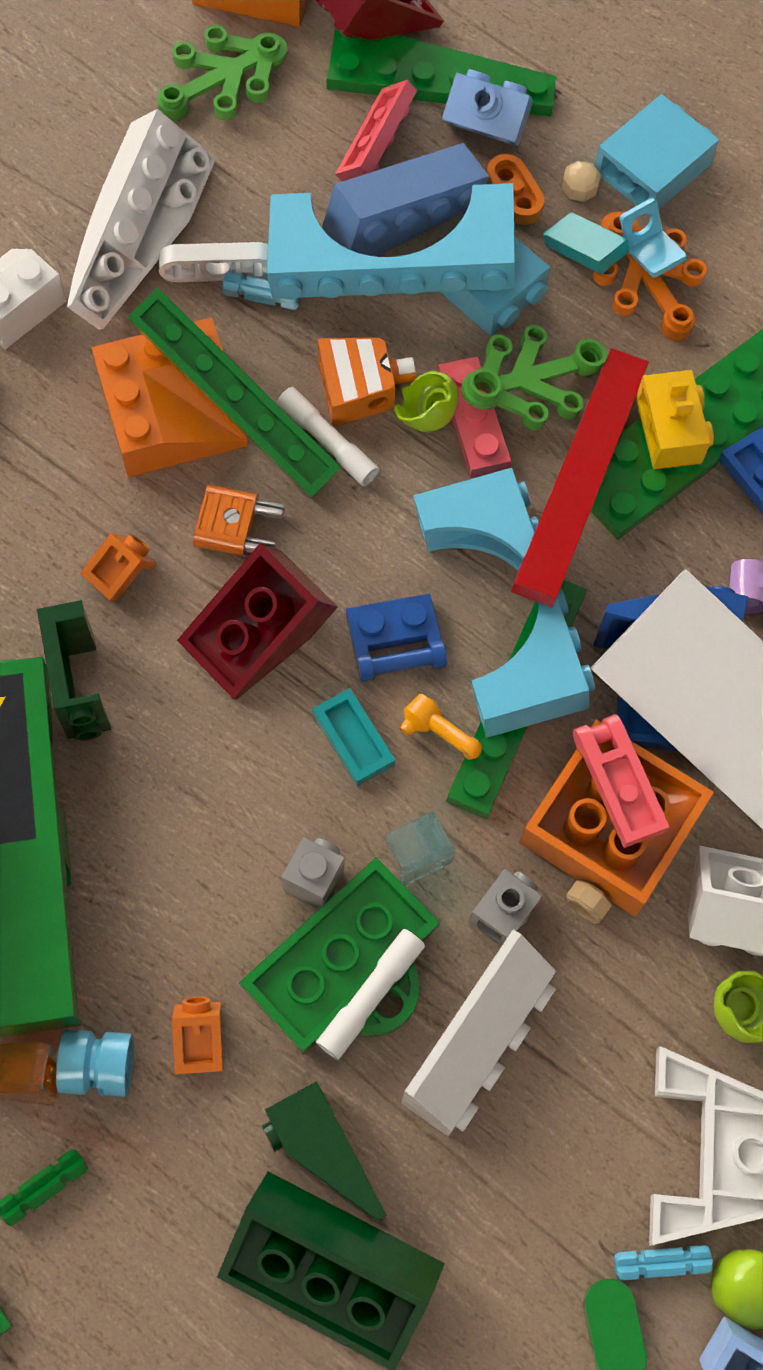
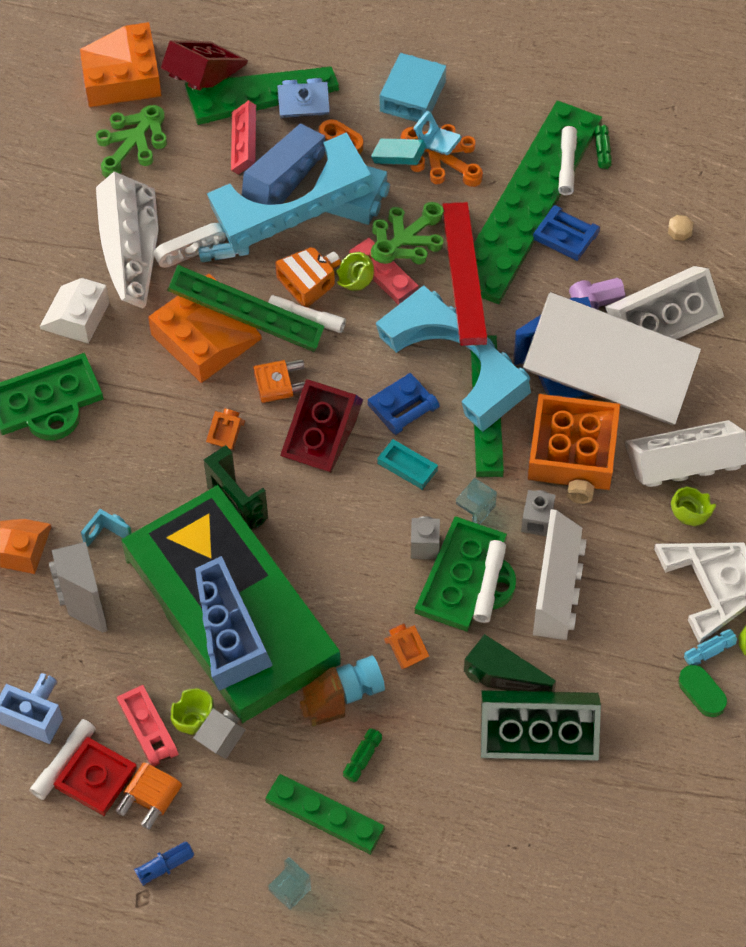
camera: 20 degrees left, 10 degrees down
(424, 715) = (441, 435): light orange piece -> none
(581, 181) = (376, 119): tan tile -> none
(621, 781) = (568, 416): coral plate -> none
(674, 419) = (499, 225): yellow brick -> none

